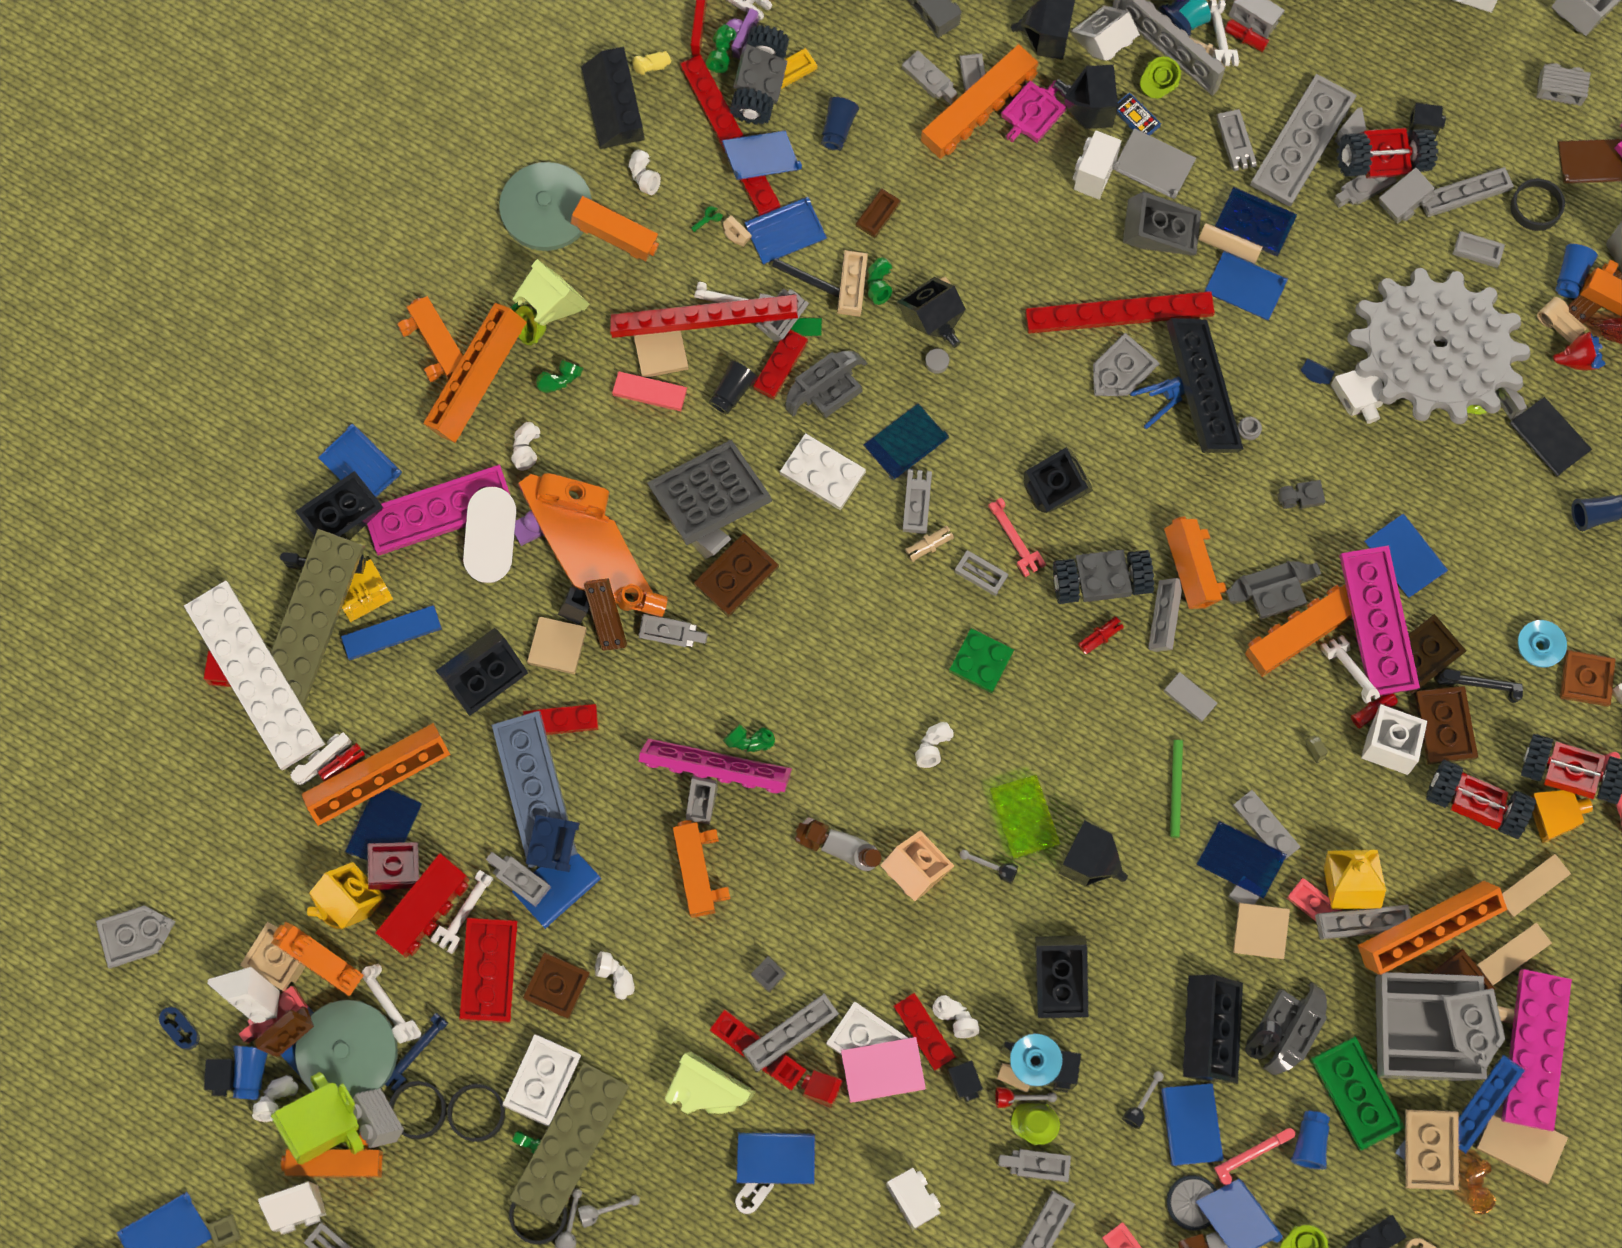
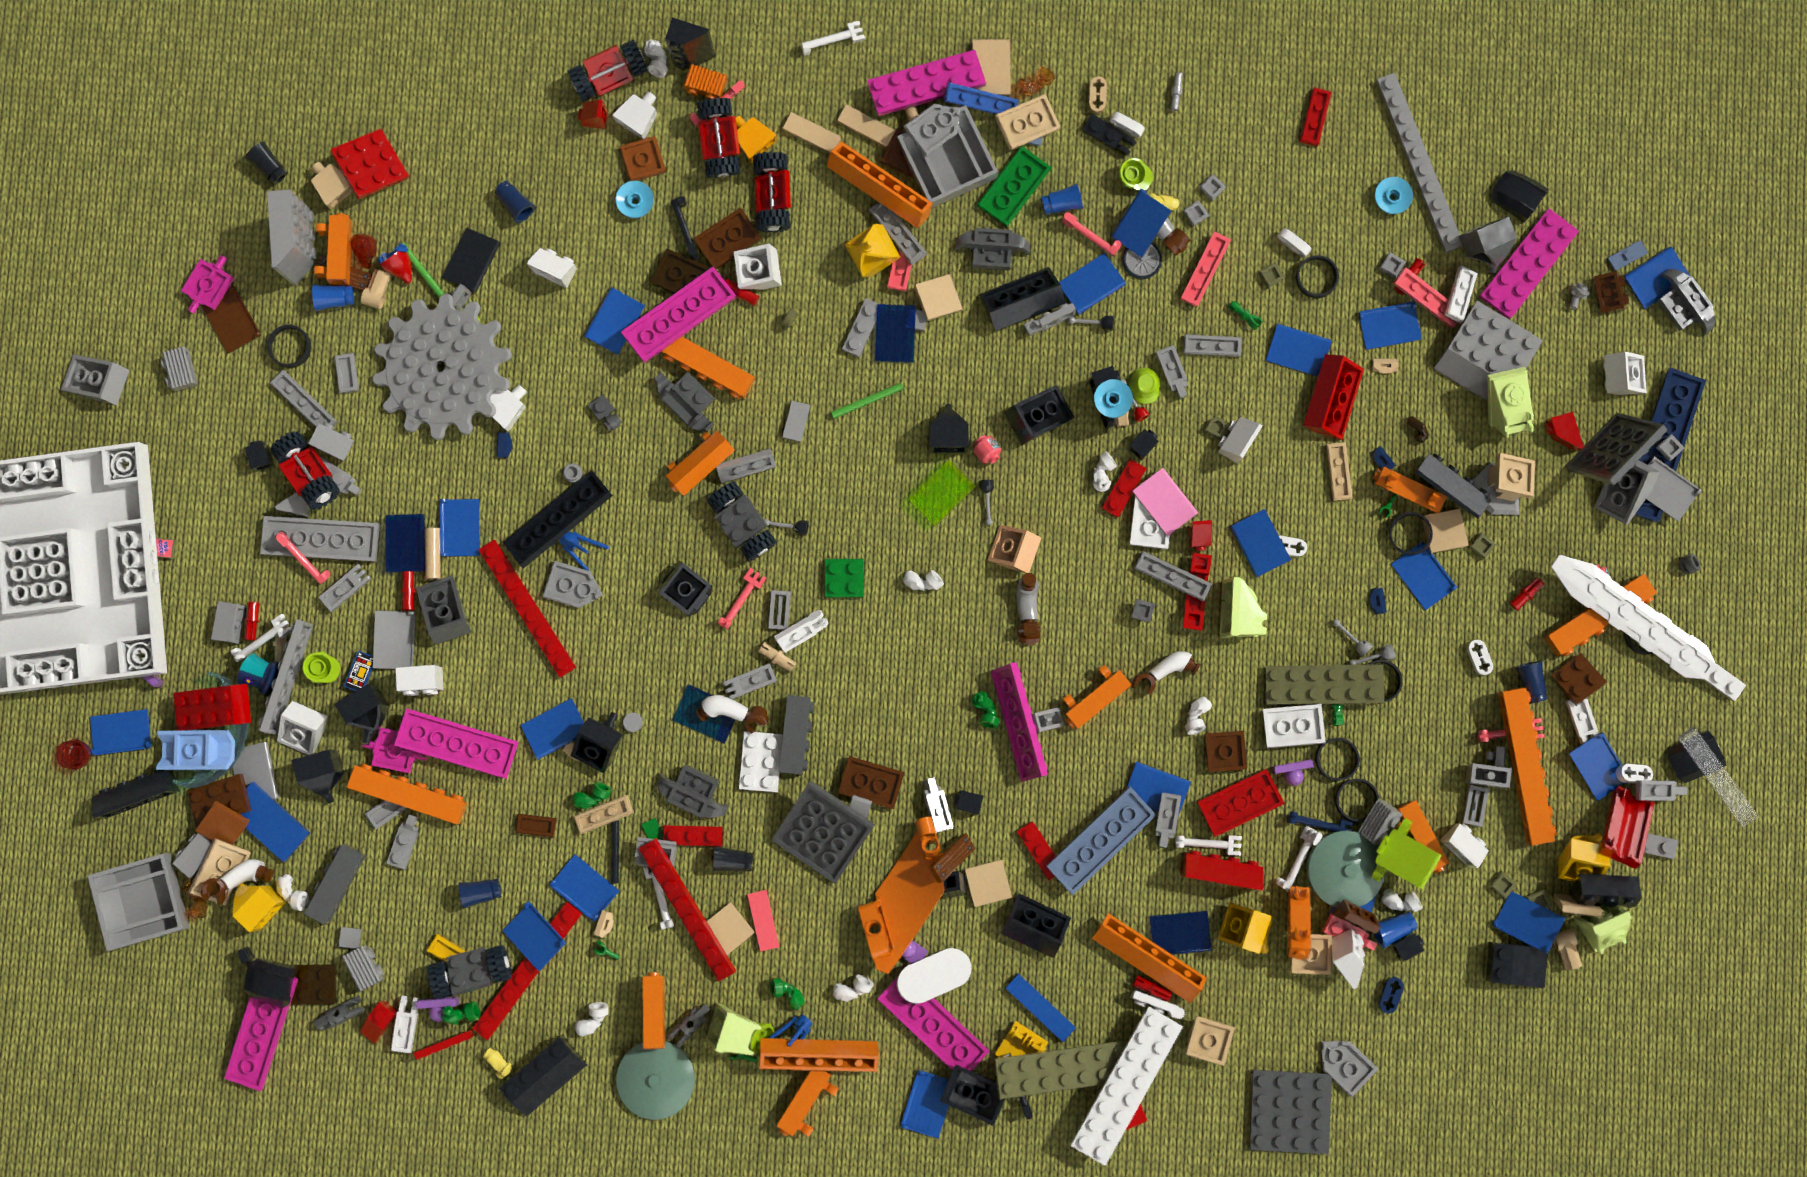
camera: 115 degrees left, 10 degrees up
(121, 845) = (1290, 1111): none -> dark grey plate
(125, 1193) = (1516, 965): none -> black slope
(249, 793) = (1209, 1040): none -> tan panel
(392, 865) = (1205, 909): tile -> none
(491, 1051) = (1294, 774): none -> medium lavender tile
(516, 375) = (801, 1026): none -> blue plant
(545, 840) = (1135, 811): dark blue plate -> none
(586, 273) = (696, 1017): none -> dark grey hinge
(657, 667) = (968, 802): none -> black brick
(689, 980) = (1174, 662): none -> white piece
(832, 520) = (795, 735): none -> dark grey brick
(907, 455) = (721, 705): none -> piece
(941, 1182) = (1216, 427): none -> olive tile
(945, 582) = (801, 631): none -> white hinge
(974, 276) = (553, 728): none -> blue piece
(1008, 171) = (456, 743): none -> dark pink plate
(1050, 893) = (987, 449): none -> coral head
(1064, 641) = (800, 527): none -> hinge
(1100, 635) = (783, 504): red axle -> none
(1170, 1049) = (1050, 319): none -> light grey hinge
(1201, 200) = (407, 591): none -> red pin
(1259, 1036) = (1014, 261): black beam -> none
(1320, 99) = (283, 539): none -> coral hinge
(1339, 650) = (710, 335): white hinge -> none
(1501, 514) = (552, 267): none -> white slope
(1560, 379) = (425, 275): none -> bright green bar

